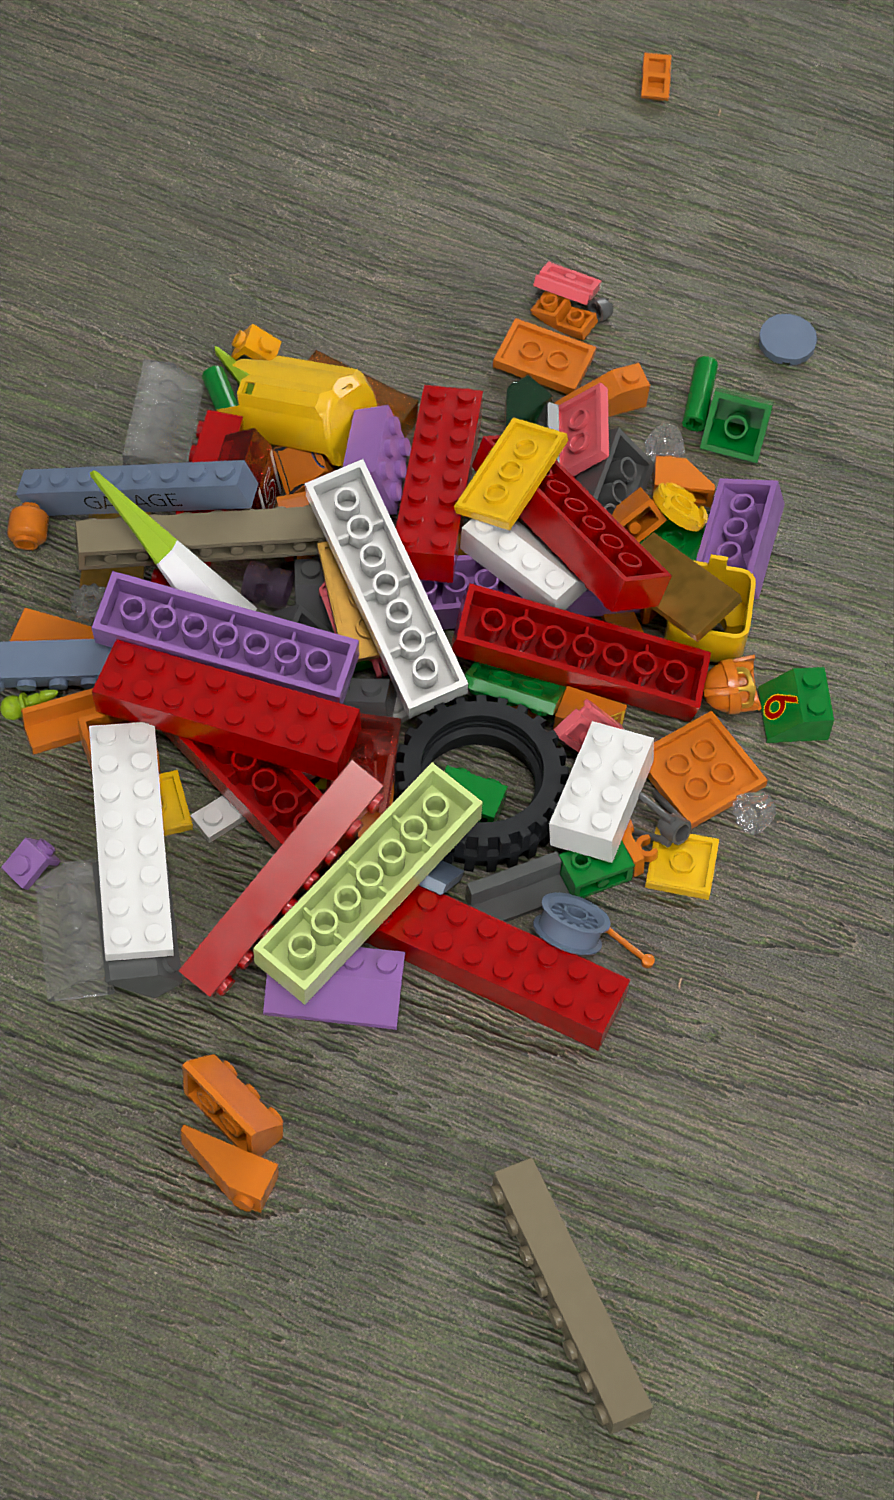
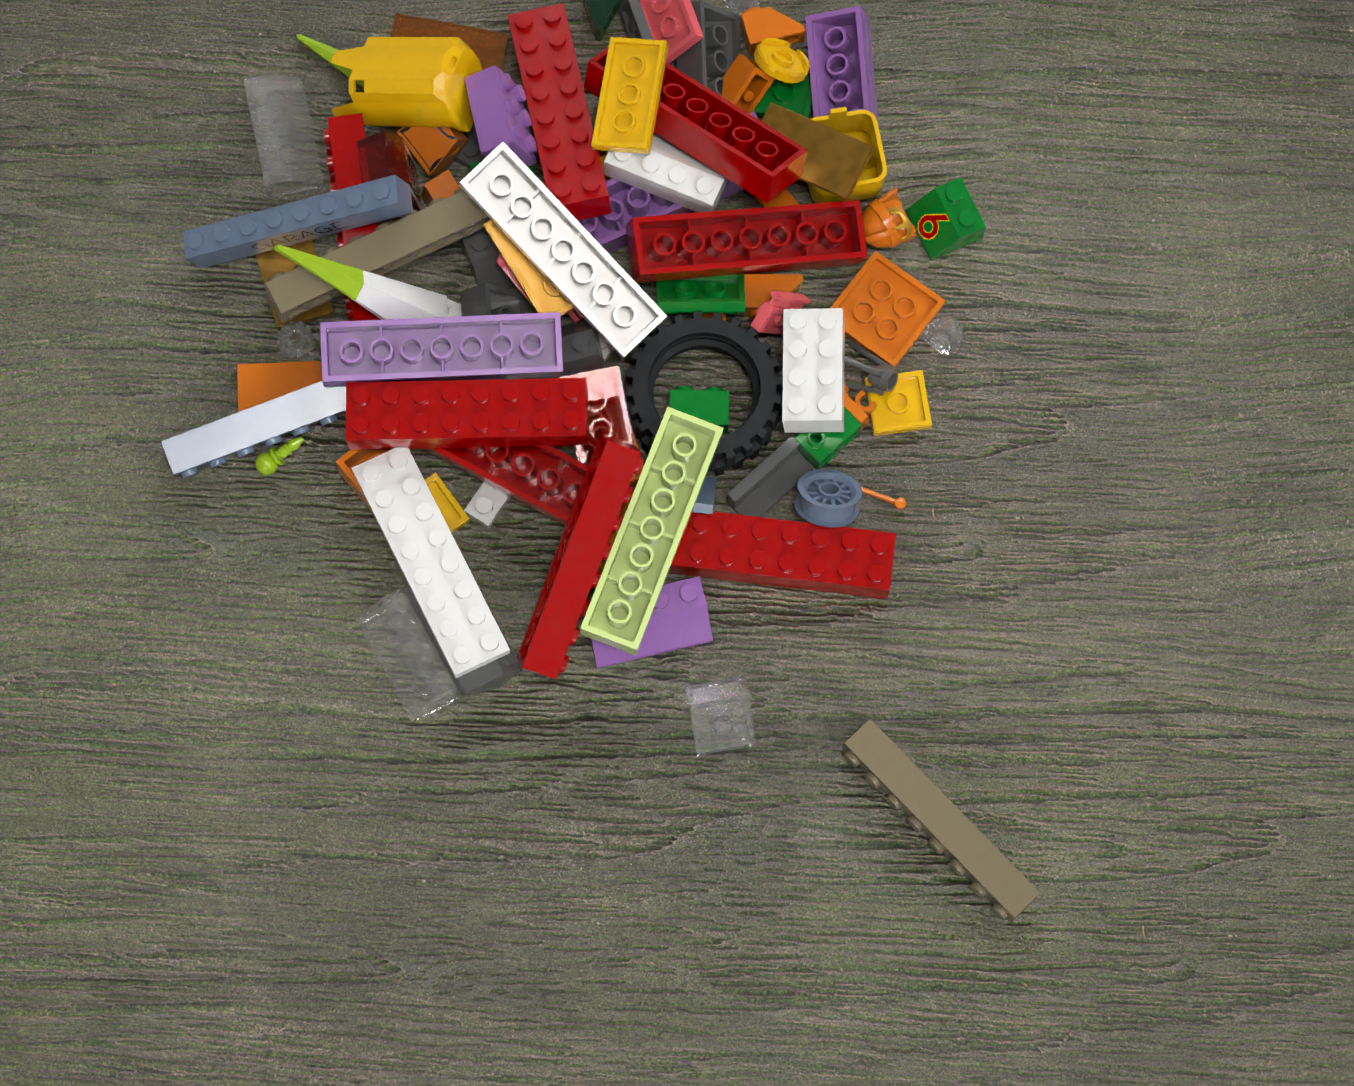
camera: 20 degrees left, 15 degrees up
(28, 526) = (206, 283): orange head -> none
(30, 861) = (346, 603): medium lavender bracket -> none
(56, 721) = (317, 462): orange panel -> none
(219, 388) = (323, 84): green piece -> none
(231, 1104) = (607, 761): orange slope -> none
(238, 1173) = (633, 817): orange slope -> none
(255, 344) = (334, 21): light orange bracket -> none
(267, 585) = (444, 266): wheel -> none
(372, 1103) = (720, 715): none -> clear slope

